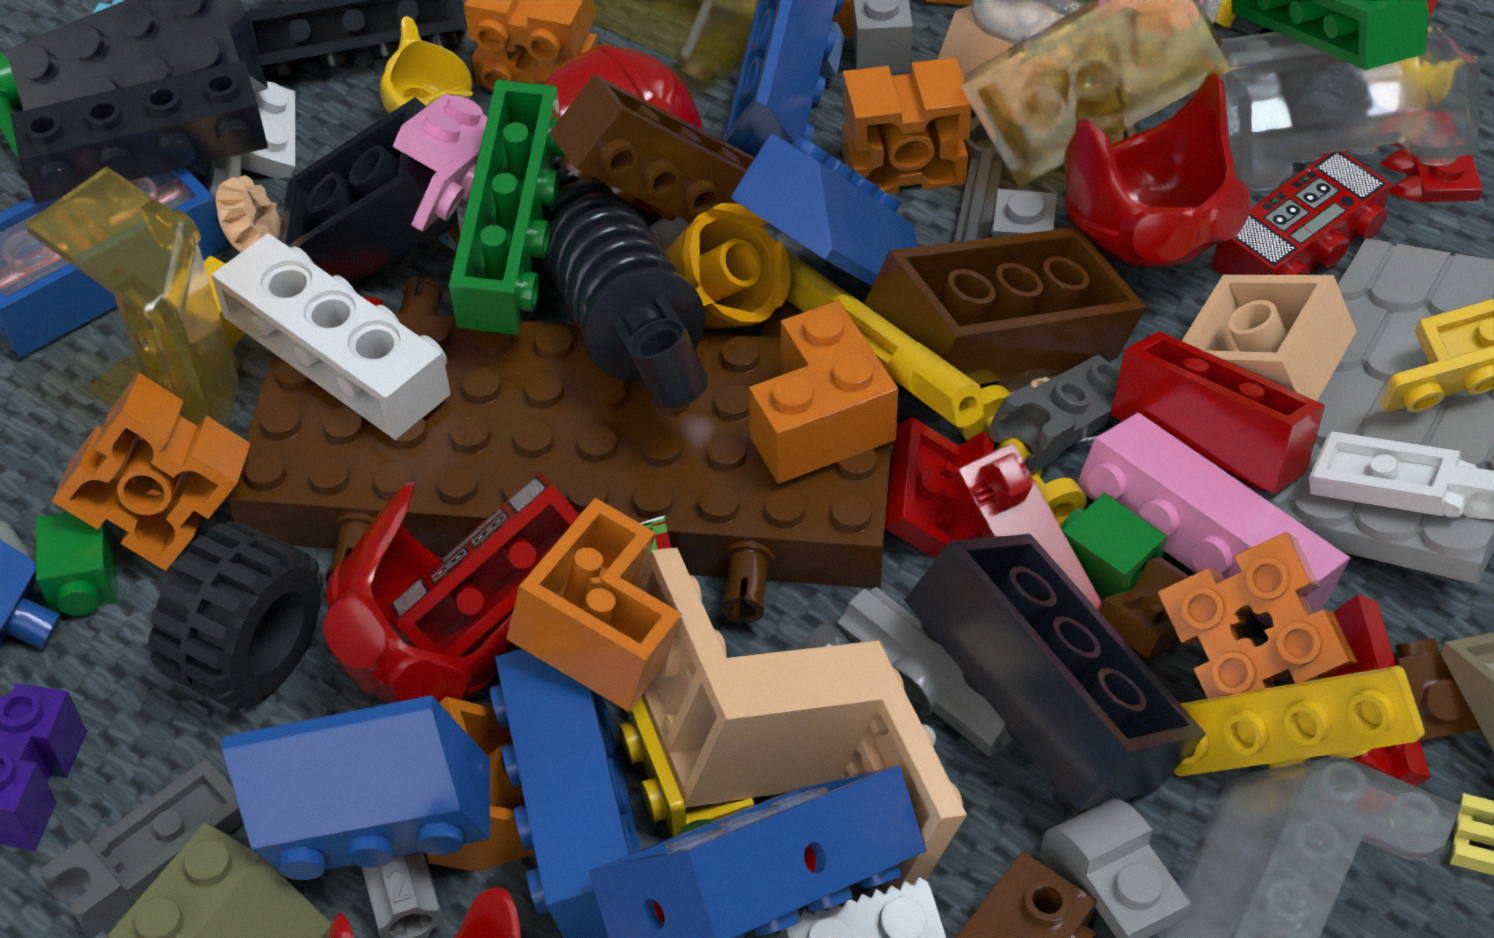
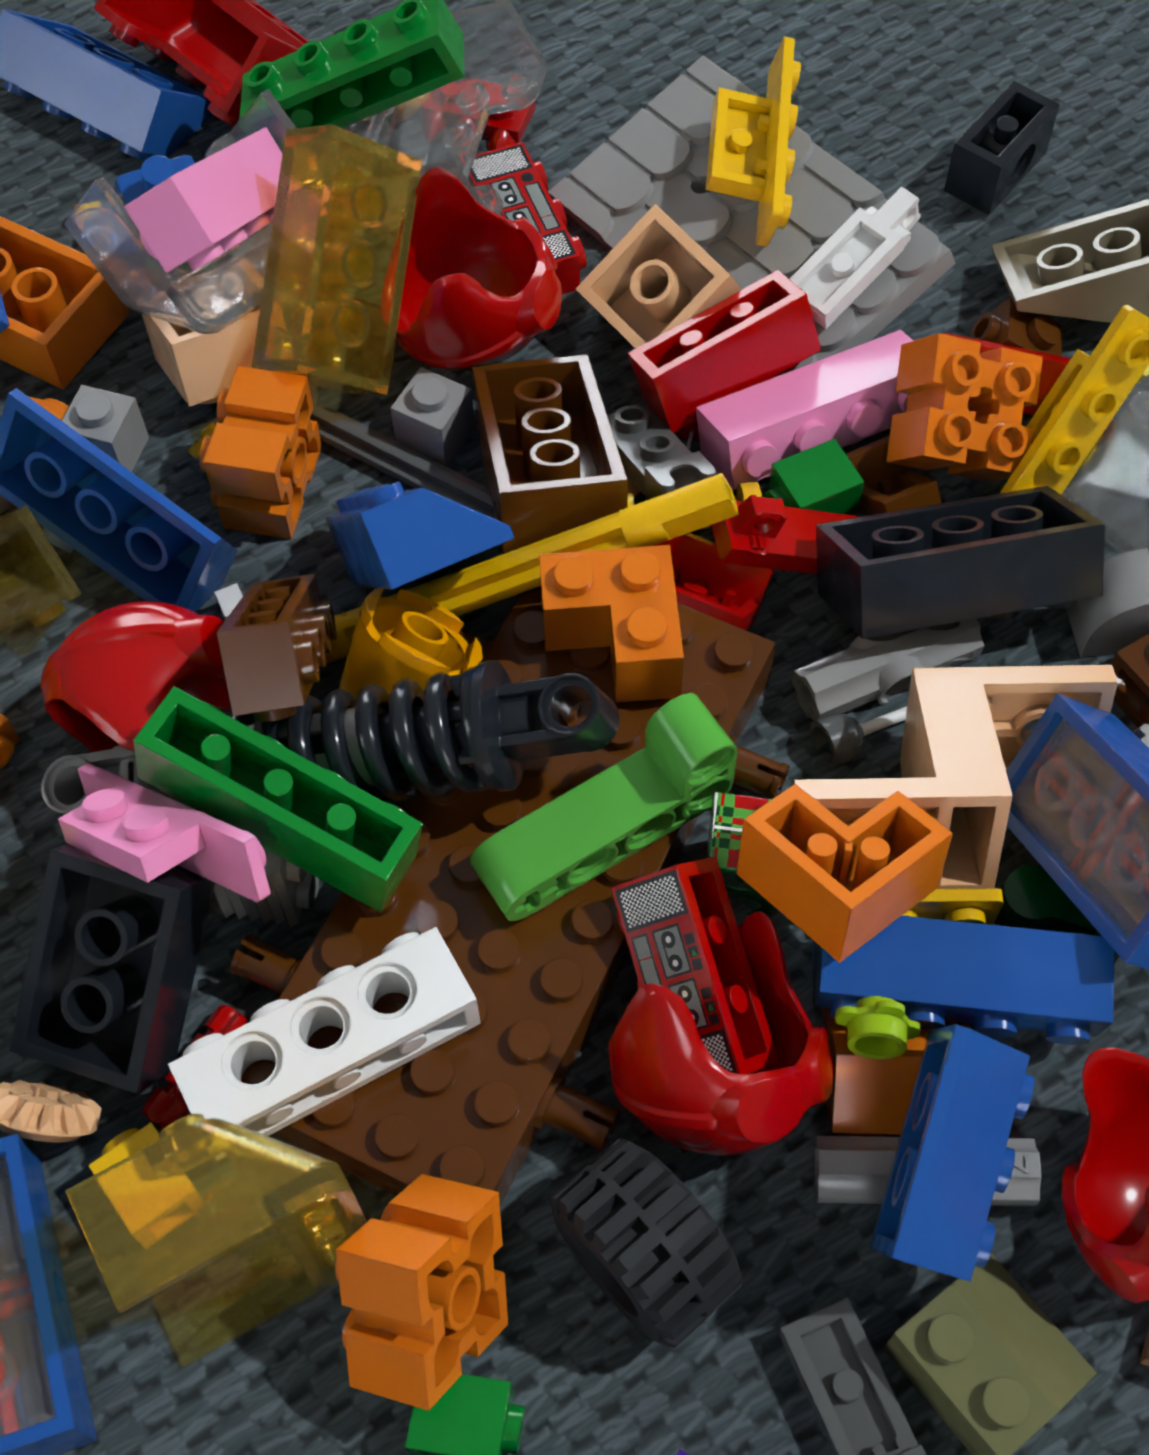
camera: 70 degrees left, 10 degrees up
(472, 705) = (877, 1027): none -> lime plate
(614, 453) = (611, 813): none -> bright green beam

